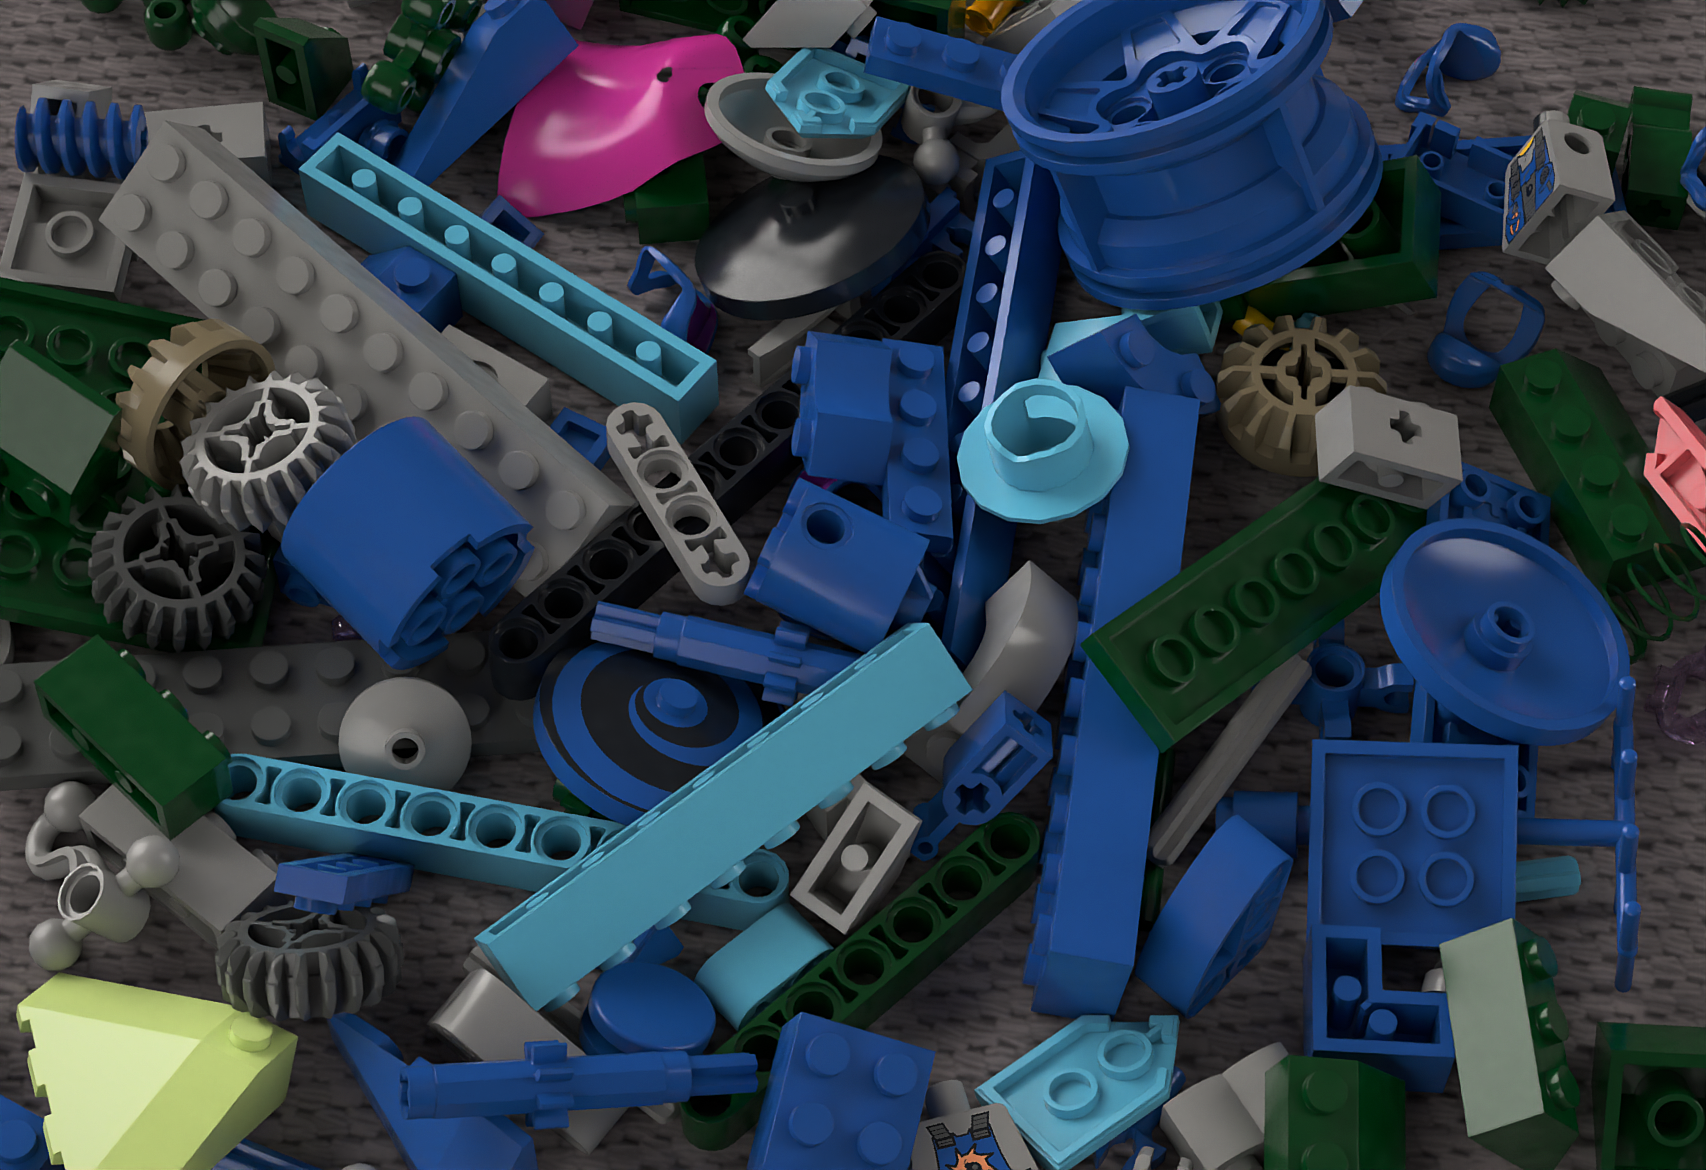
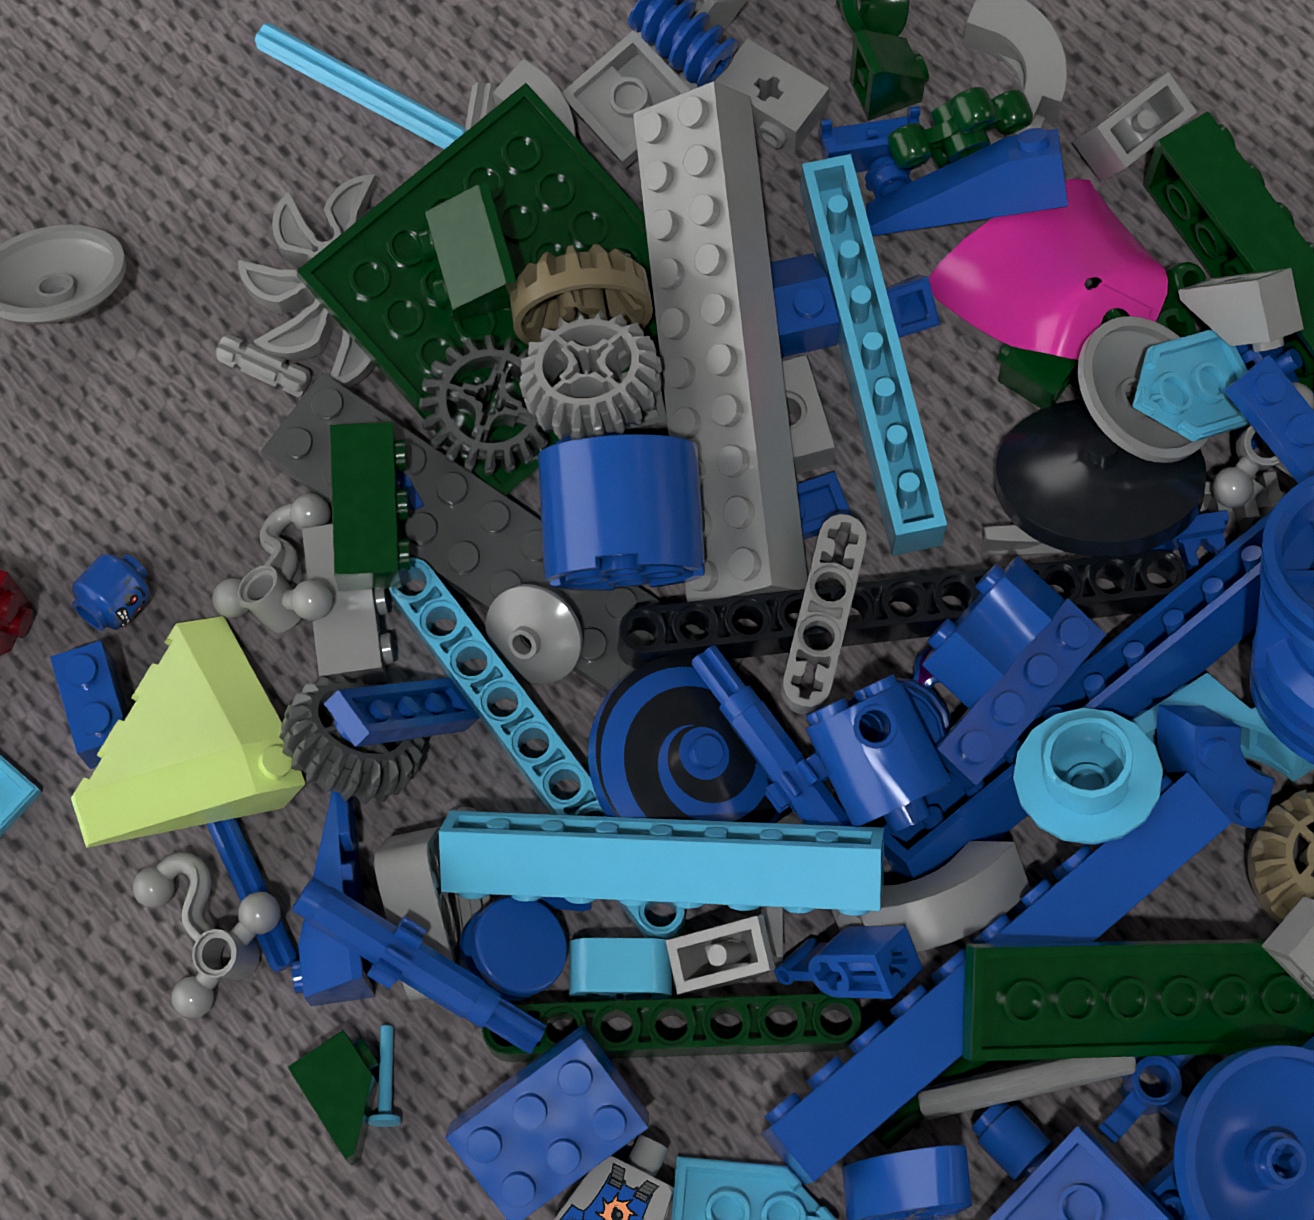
camera: 45 degrees right, 15 degrees up
(692, 314) = (970, 474): blue piece -> none

